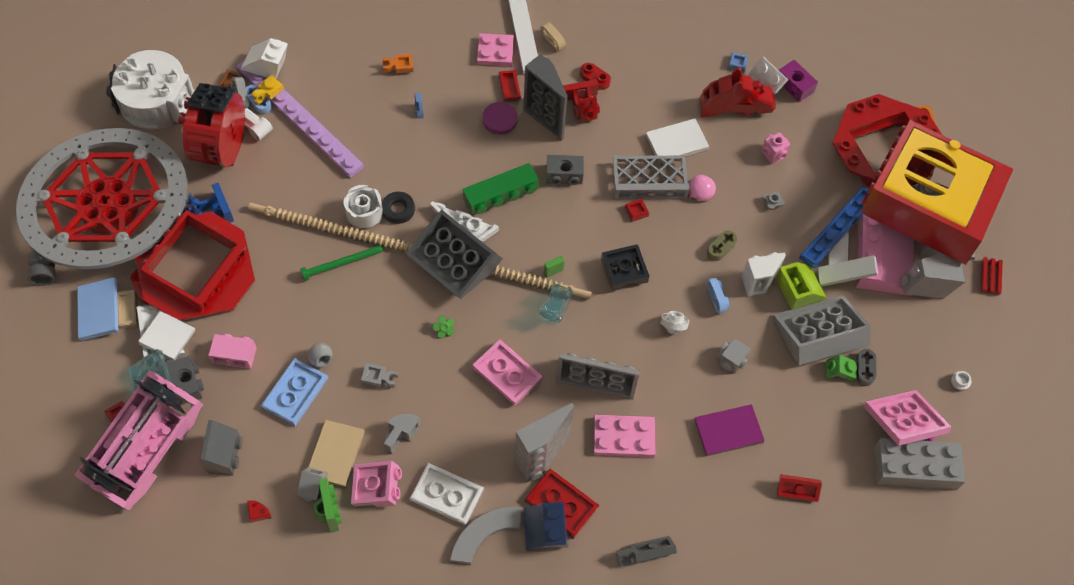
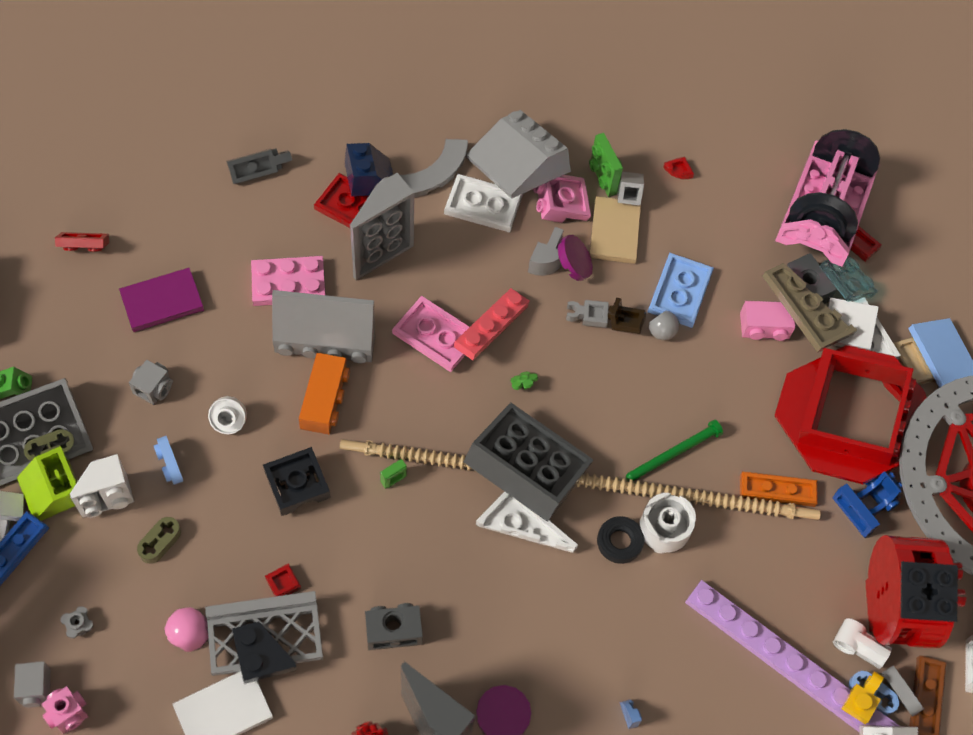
camera: 170 degrees right, 0 degrees up
(198, 340) = (806, 308): none -> dark tan wing
(221, 449) = (739, 209): dark grey slope -> none
(272, 228) = (778, 488): none -> orange tile
(348, 366) = (626, 318): none -> dark brown bracket
(379, 418) = (575, 257): none -> magenta tile
(409, 520) = (519, 155): none -> light grey slope
(460, 371) = (491, 324): none -> coral plate
(500, 189) = (481, 577): green brick -> none
(556, 303) = (386, 415): clear light blue brick -> none
(600, 331) = (324, 393): none -> orange brick
(653, 159) = (260, 653): none -> black wing
(798, 166) = (32, 683): none -> light grey brick
(805, 311) = (46, 439): none -> olive beam

